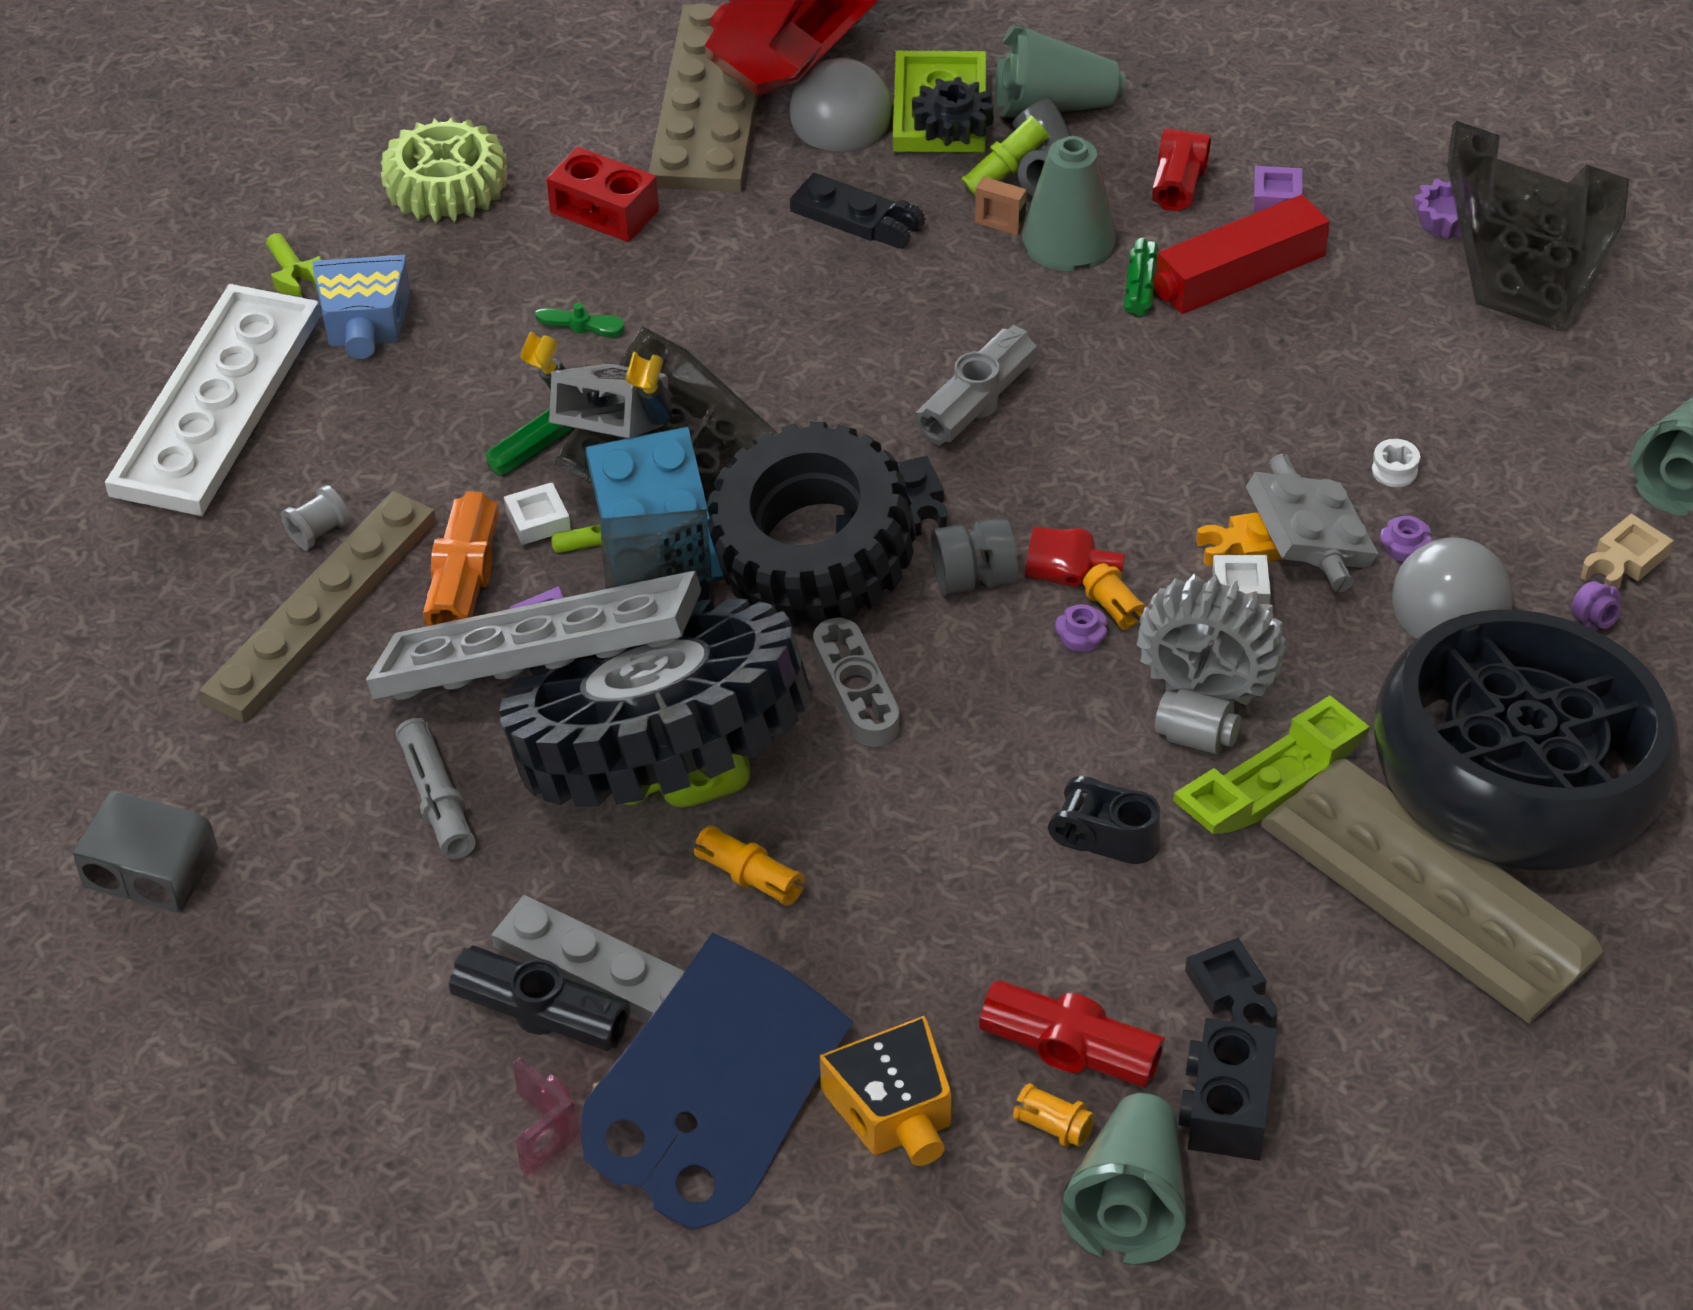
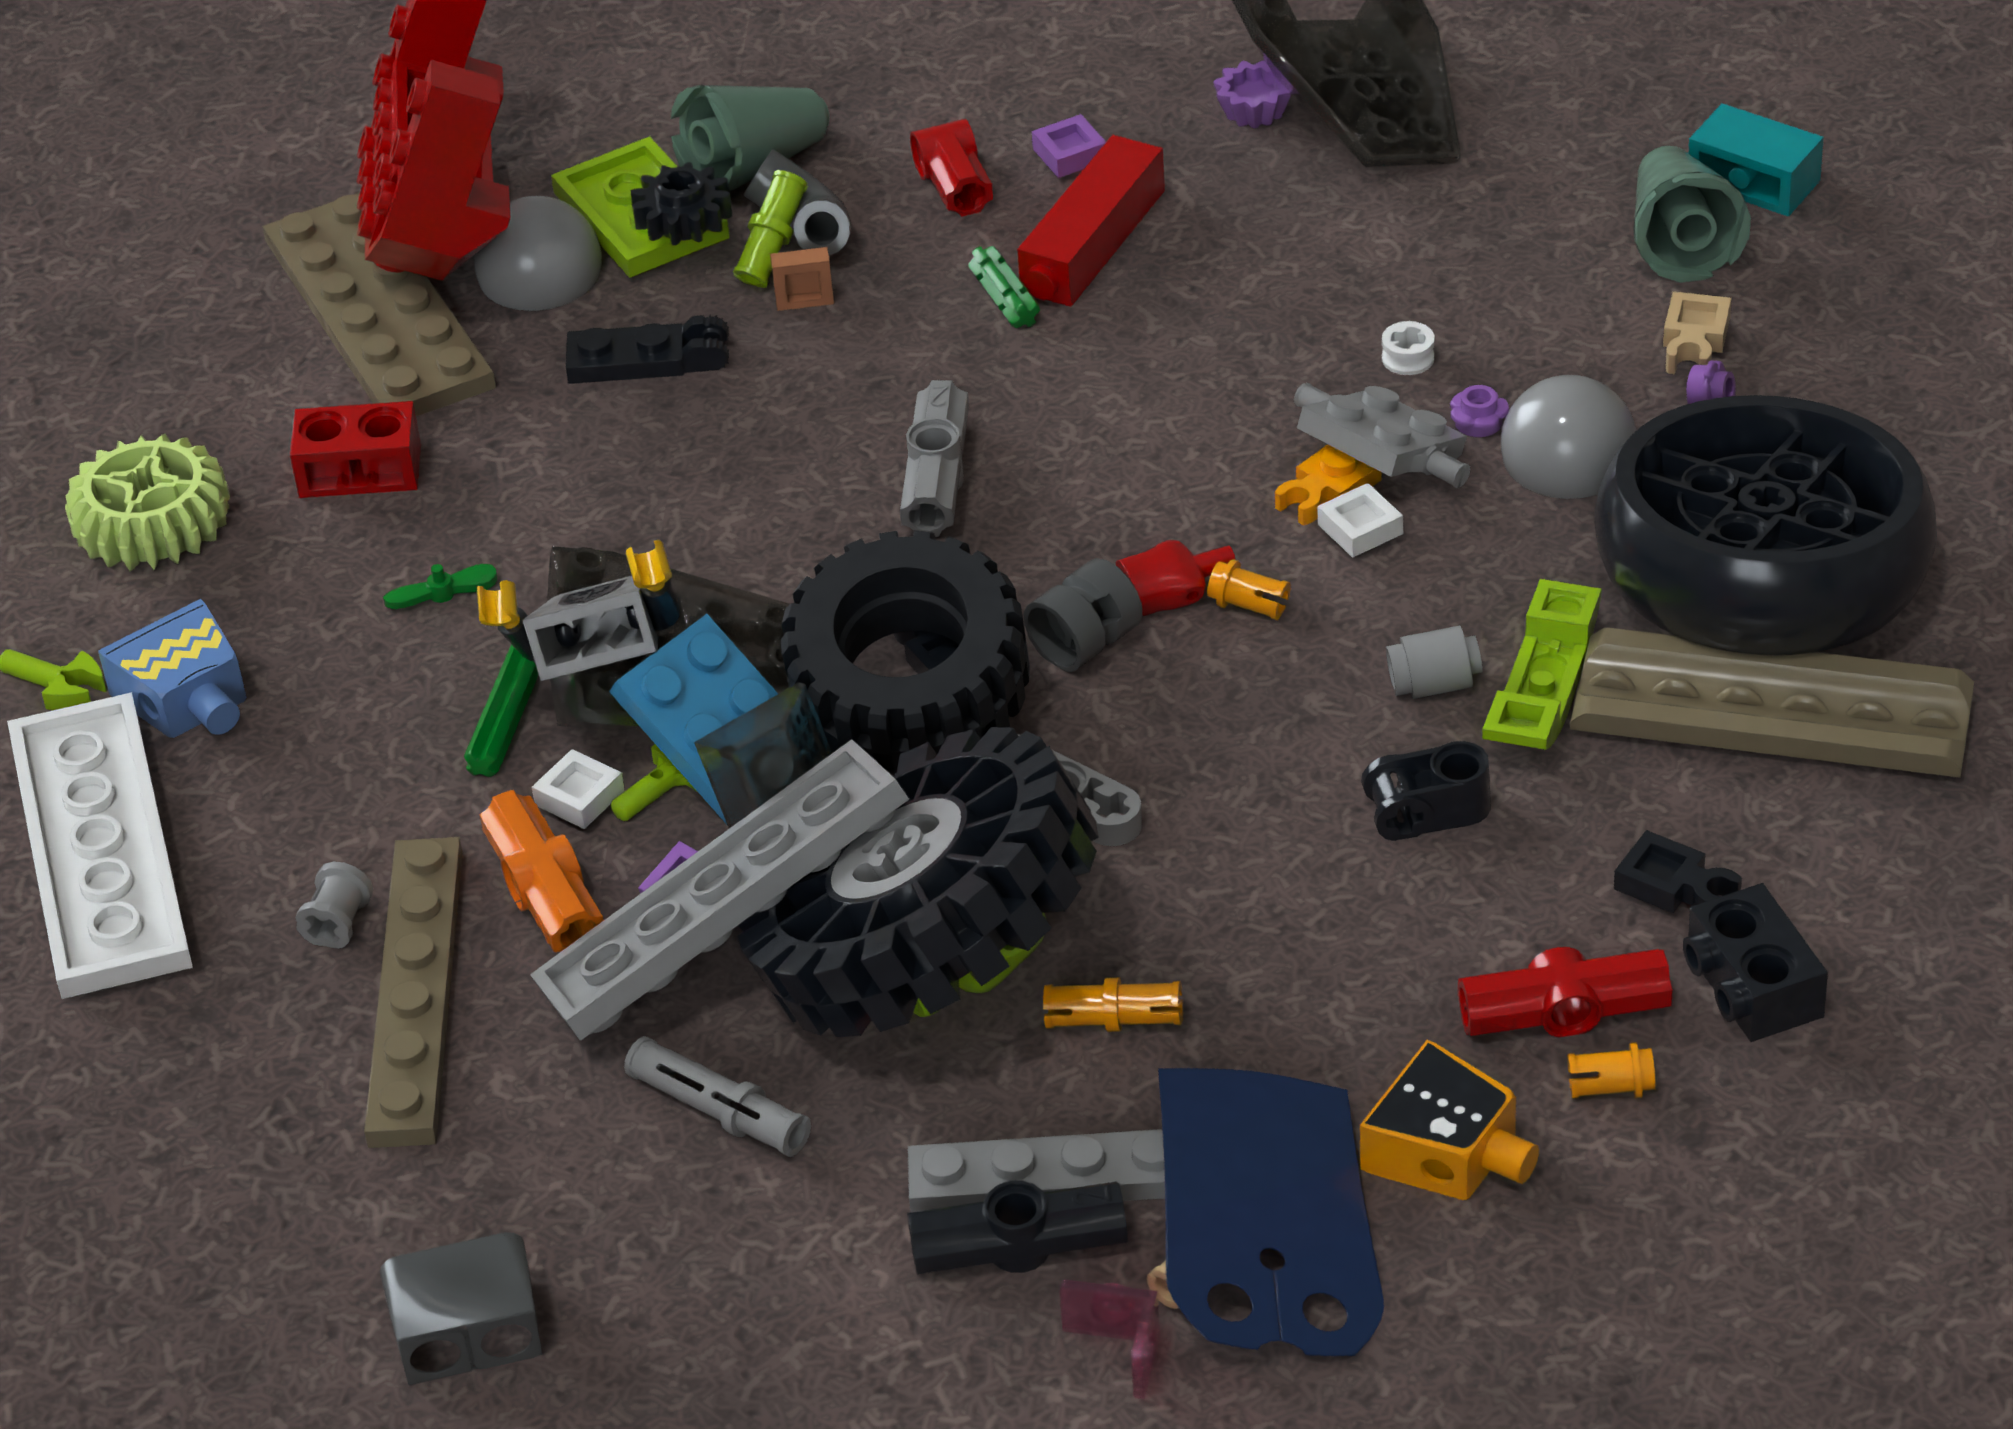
camera: 30 degrees left, 5 degrees down
(1070, 209) = (886, 249): sand green cone -> none
(1081, 627) = (1240, 635): medium lavender plate -> none
(1130, 1184) = (1748, 1086): sand green cone -> none
(1190, 614) = (1394, 563): light grey gear -> none

